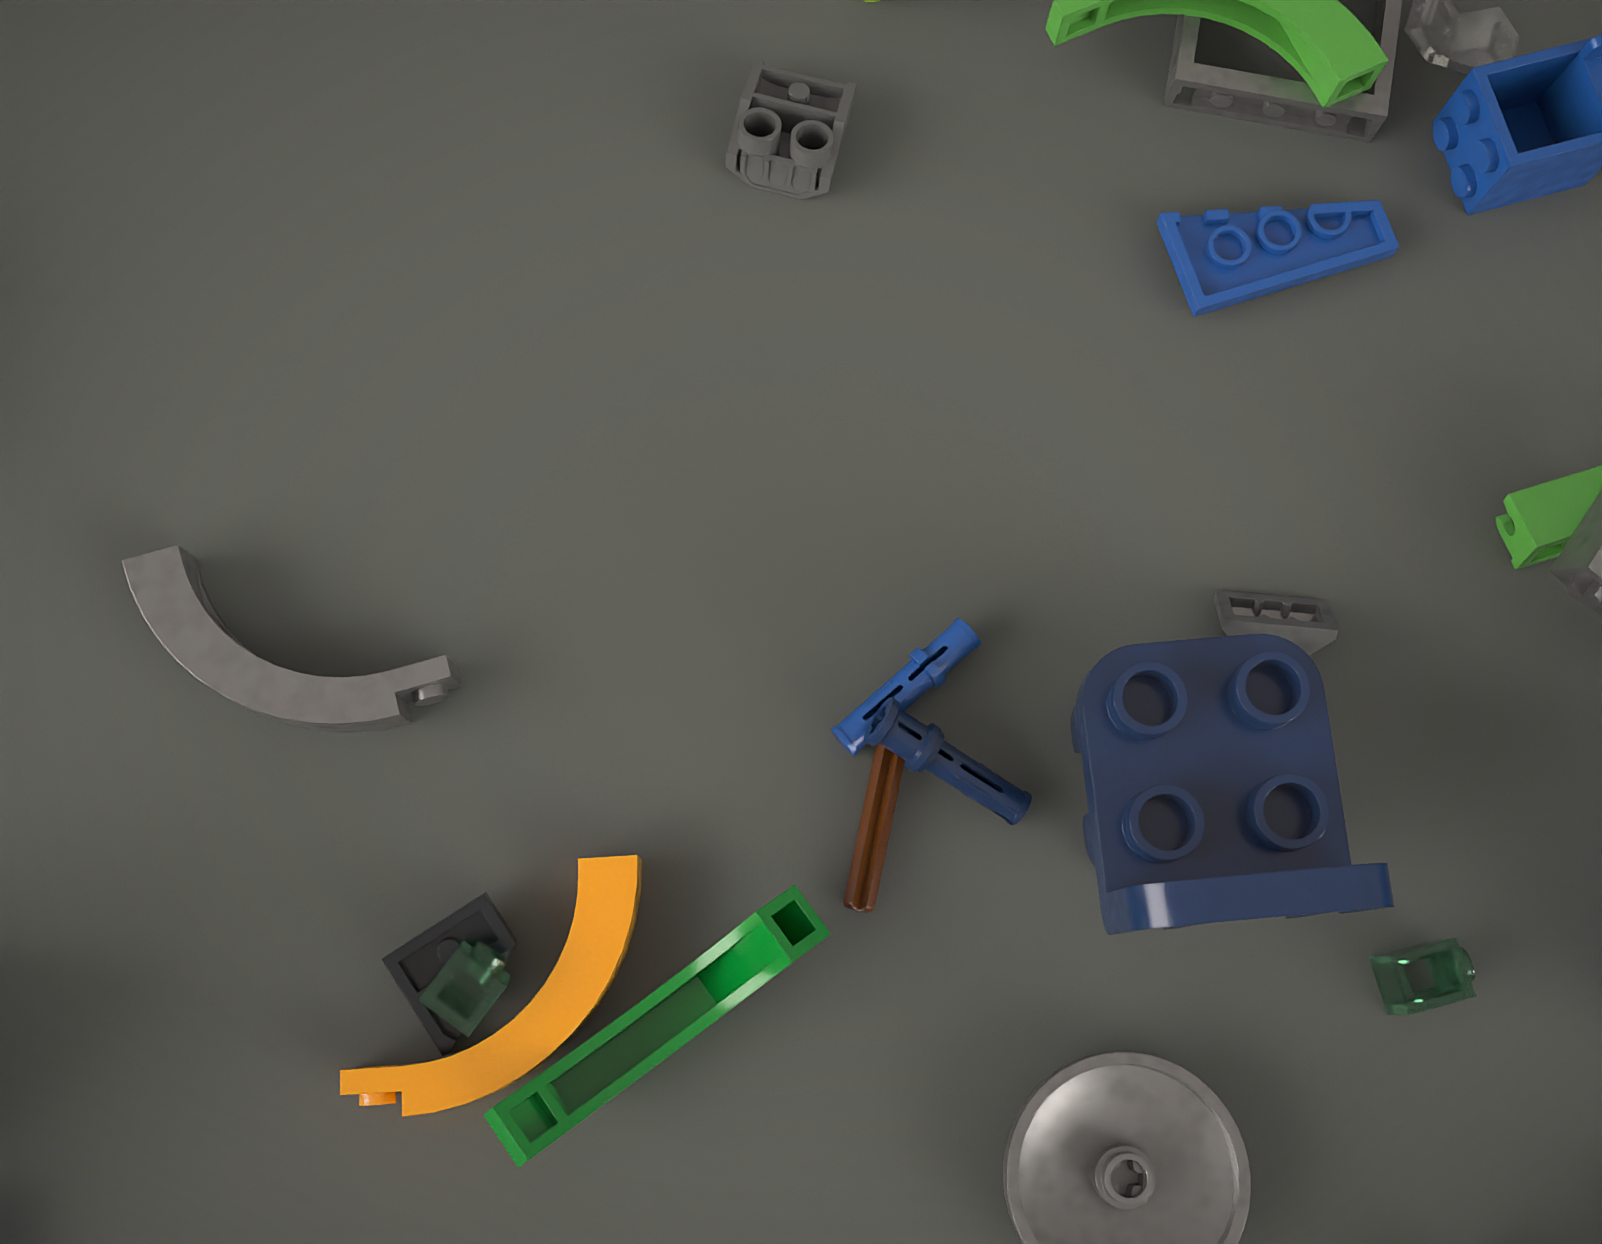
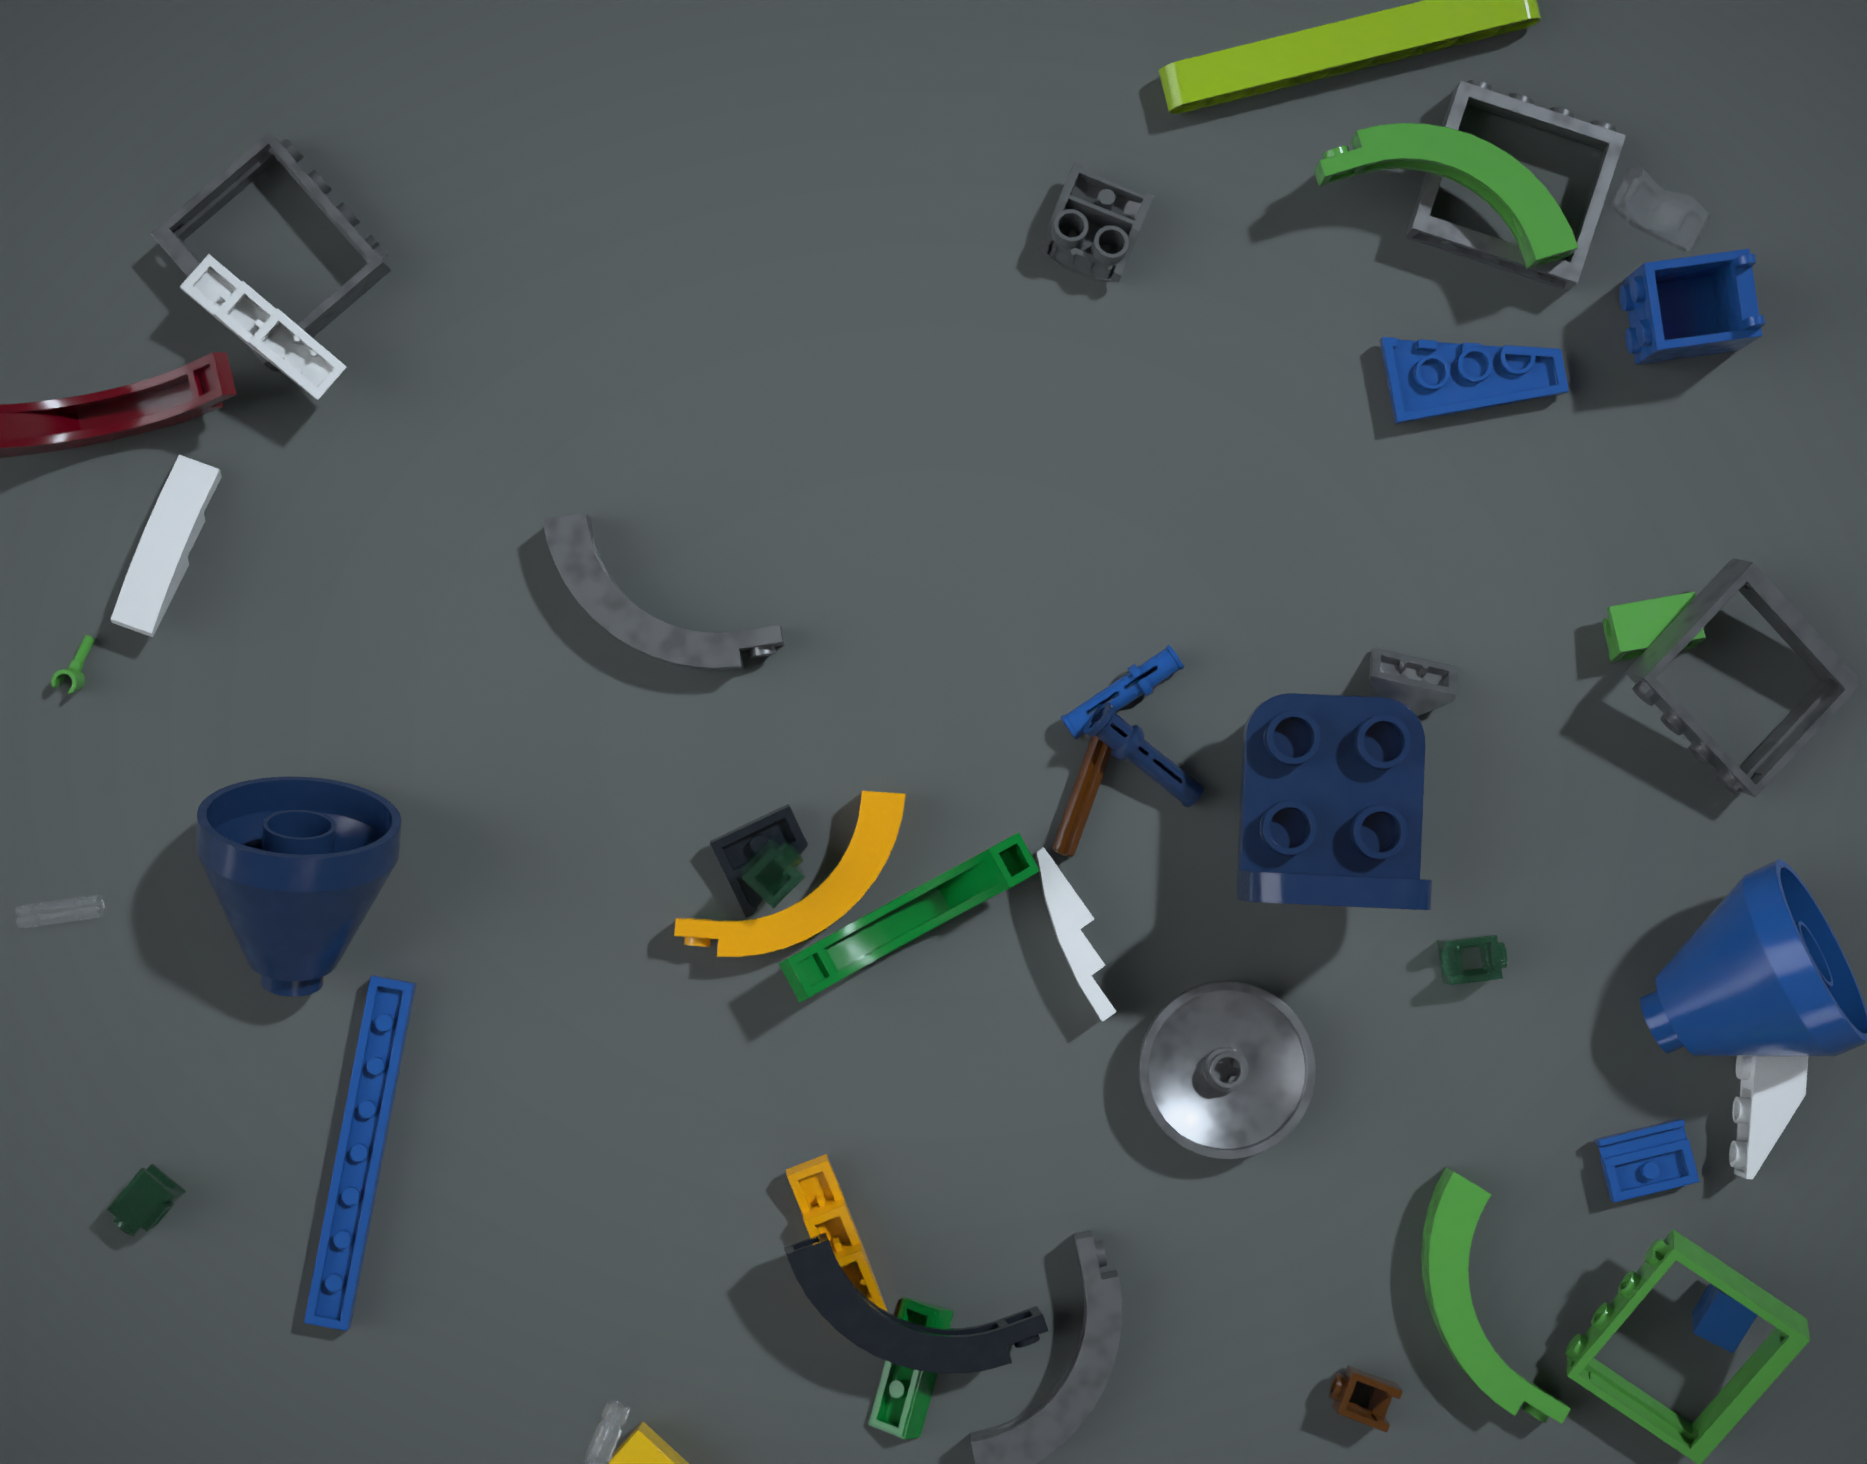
camera: 10 degrees right, 10 degrees up
(878, 994) = (1068, 917): none -> white slope

